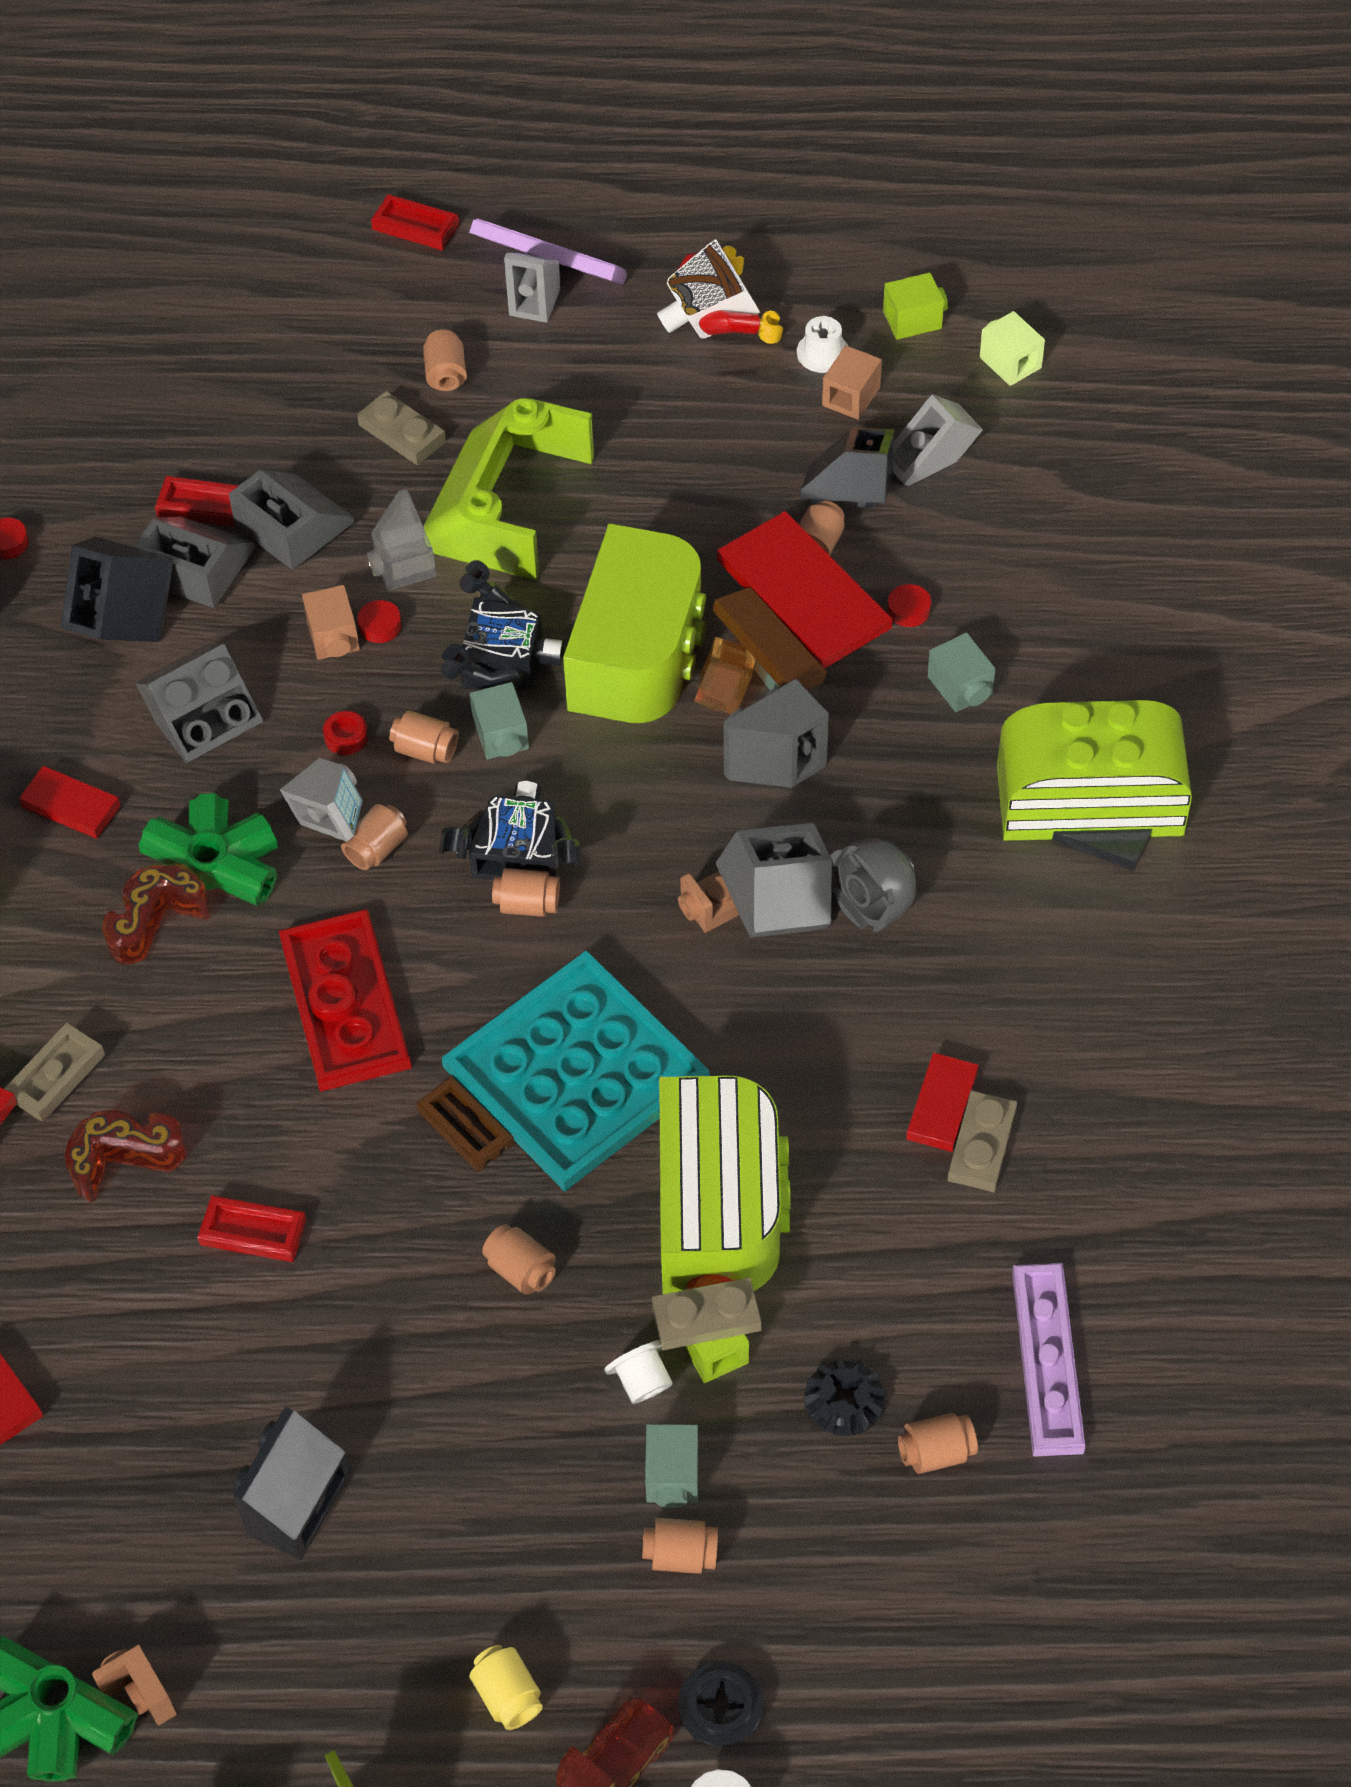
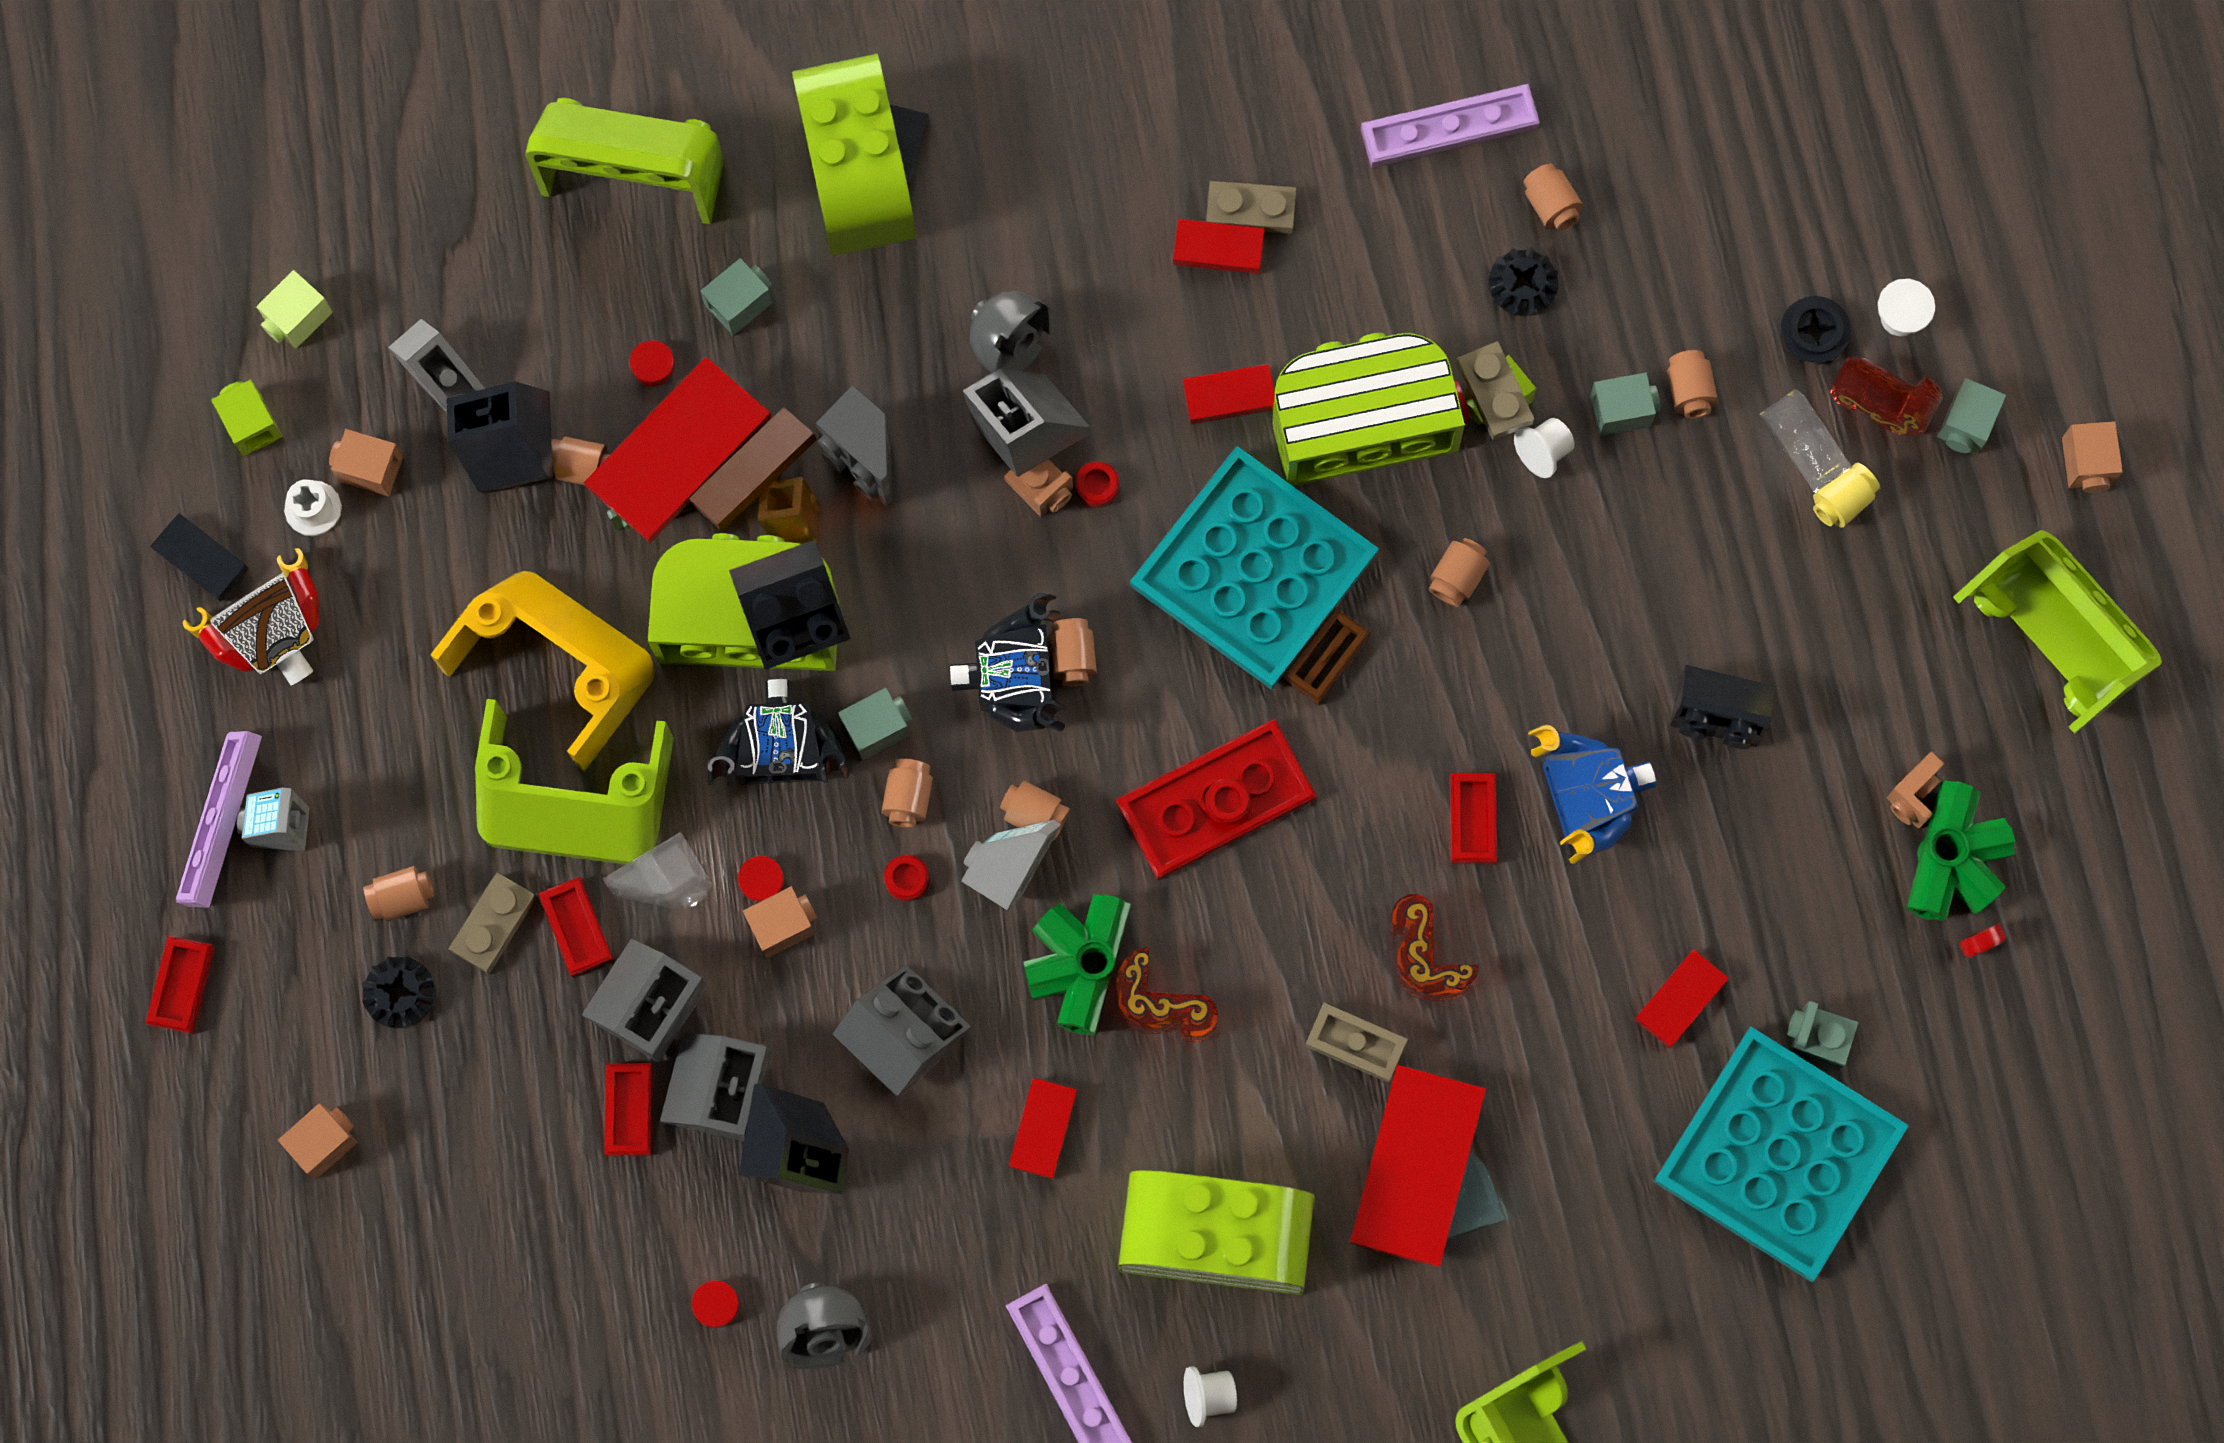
camera: 100 degrees left, 20 degrees up
(240, 1337) = (1590, 789): none -> blue torso
(246, 286) = (319, 1139): none -> nougat brick
(366, 368) = (408, 1009): none -> black gear
(378, 484) = (576, 927): none -> red tile
(582, 1646) = (1805, 440): none -> clear slope
(609, 618) = (789, 604): none -> black slope
(652, 495) = (616, 666): none -> yellow windscreen
(702, 950) = (1097, 484): none -> red tile
(776, 1070) = (1229, 393): none -> red tile
(792, 269) = (199, 557): none -> black tile
(1107, 583) = (626, 149): none -> lime windscreen

